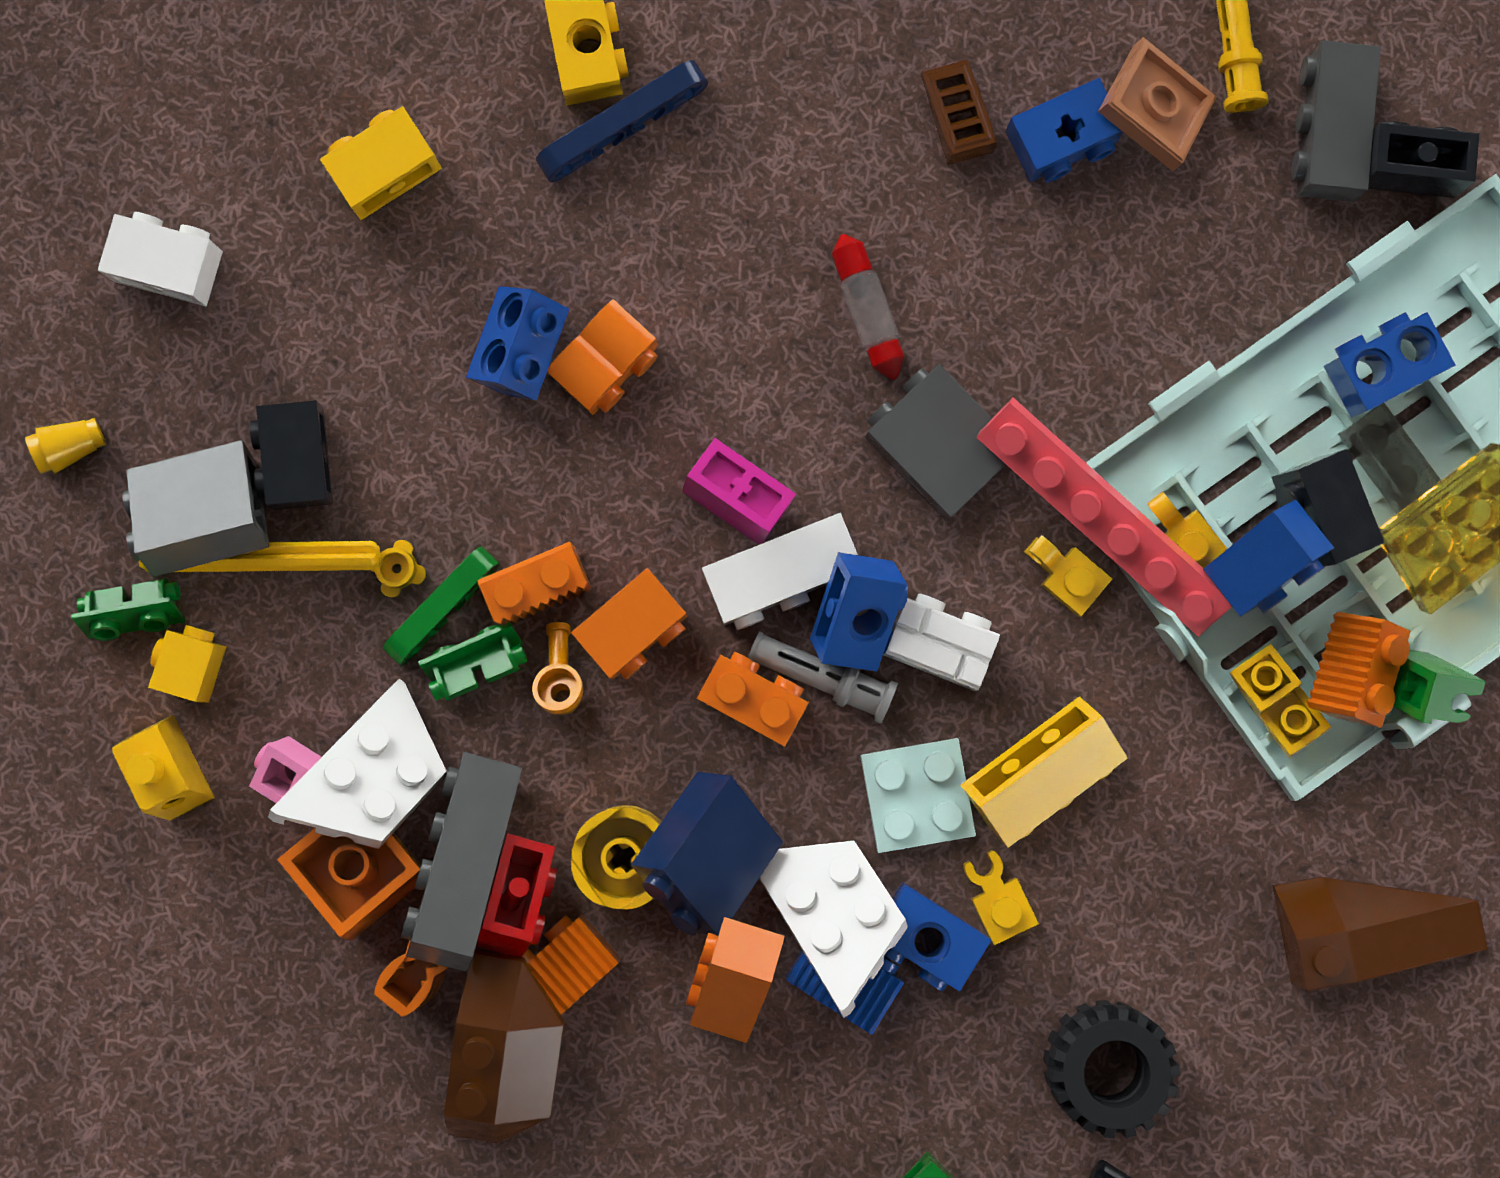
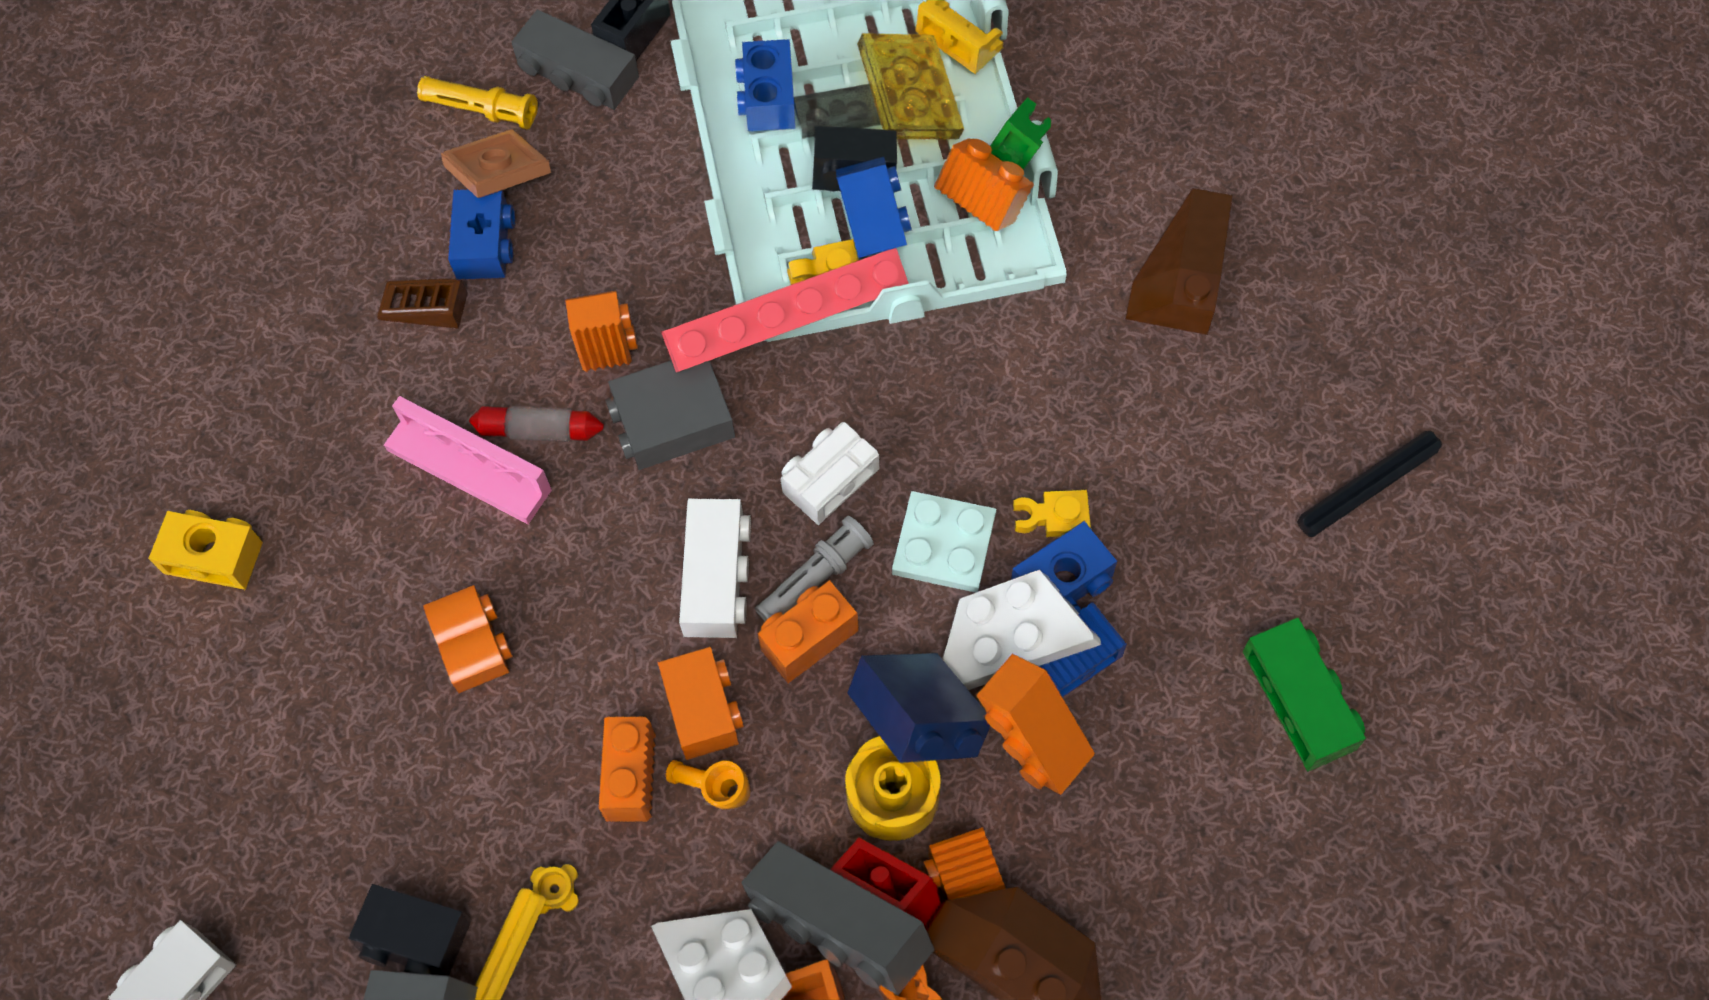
camera: 65 degrees left, 20 degrees down
(380, 162) = (202, 750): yellow brick -> none
(432, 612) = (605, 861): green beam -> none
(493, 650) = (665, 871): green hinge -> none
(517, 342) = (416, 698): blue brick -> none
(621, 120) = (283, 547): dark blue beam -> none
(738, 491) = (632, 576): dark pink hinge -> none
(790, 258) = (467, 461): none -> bright pink fence
(855, 586) = (774, 516): blue brick -> none
(996, 326) = (601, 330): none -> orange brick
(1044, 771) = (966, 435): yellow brick -> none
(1071, 578) = (821, 362): yellow plate -> none
(1146, 1092) = (1216, 508): black tyre -> none
(1279, 700) = (984, 256): yellow slope -> none

